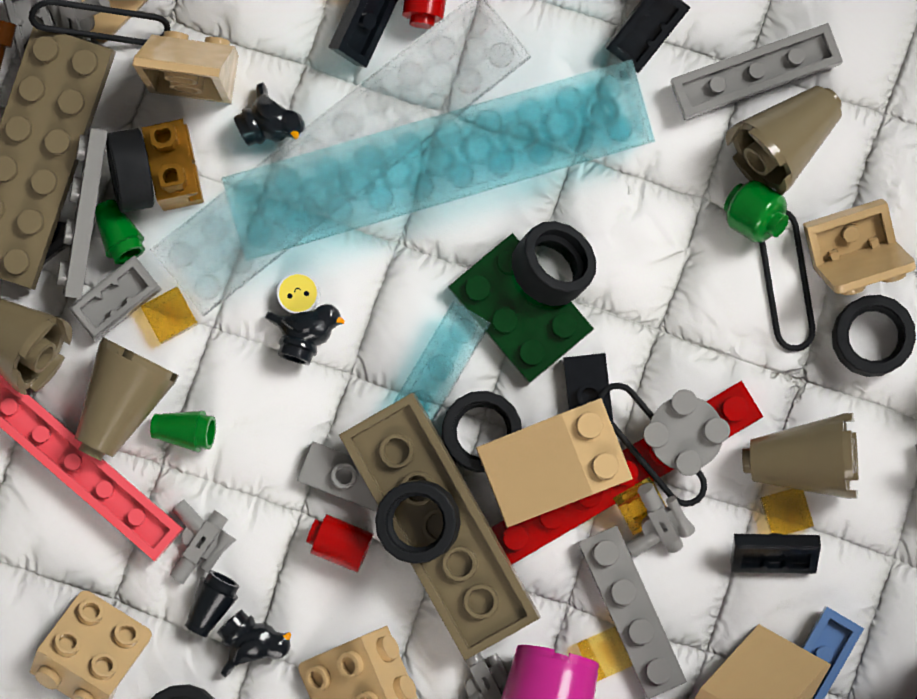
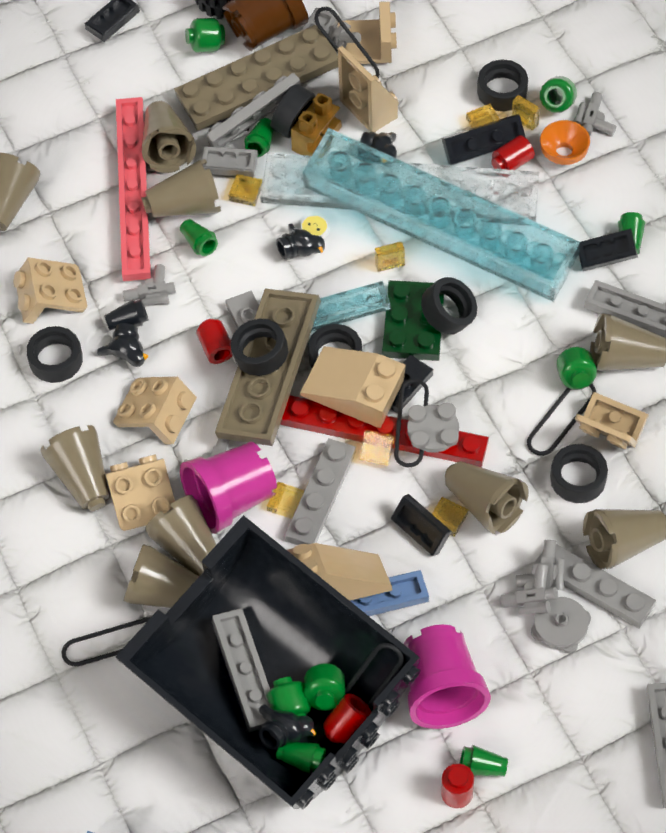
camera: 45 degrees right, 25 degrees down
(421, 255) = (389, 256): none -> clear yellow tile
(660, 524) = (377, 463): light grey piece -> none

